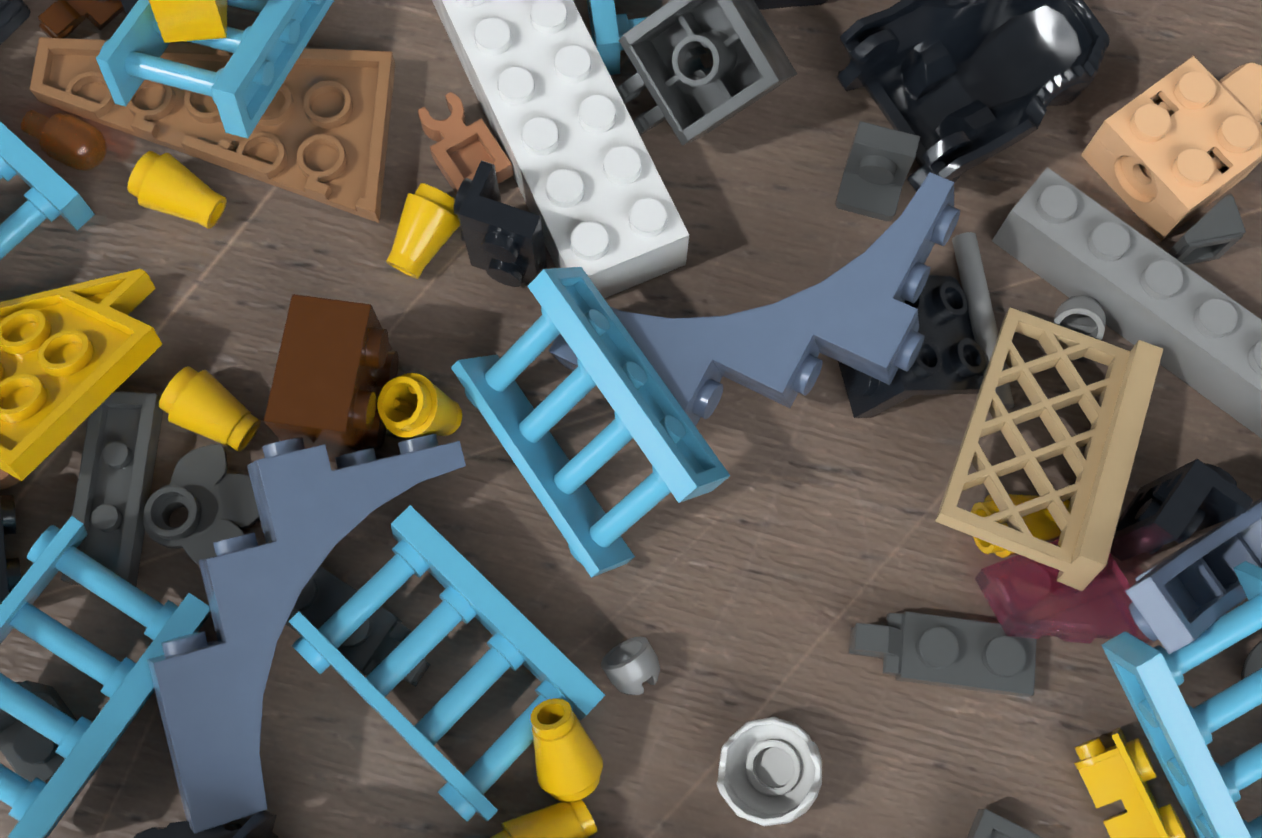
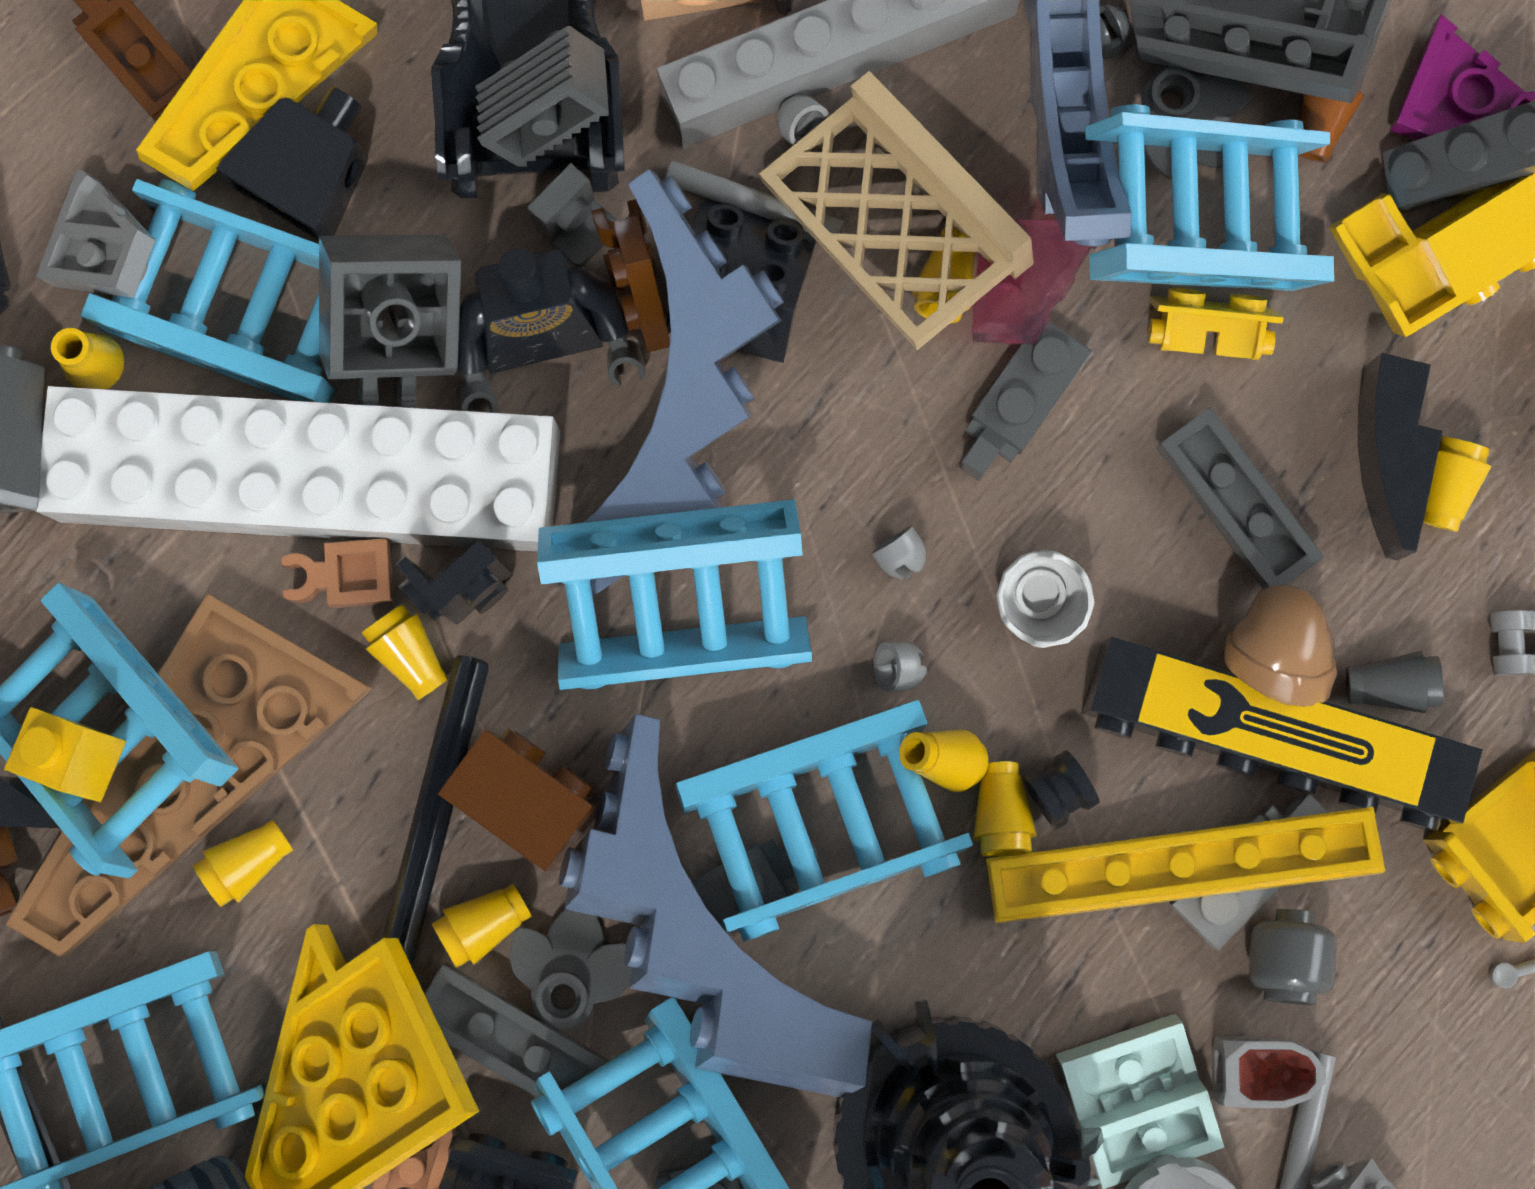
camera: 60 degrees left, 10 degrees up
(67, 139) = (128, 943): clear orange cylinder -> none
(267, 327) = (432, 811): none -> black axle
(417, 408) = (584, 737): yellow cone -> none
(737, 614) = (901, 554): none -> light grey hinge
(773, 181) = (537, 312): none -> black torso
(858, 229) = (634, 271): none -> reddish brown plate
(963, 83) = (543, 97): none -> dark grey brick
(1176, 508) = (1006, 150): black bracket -> none

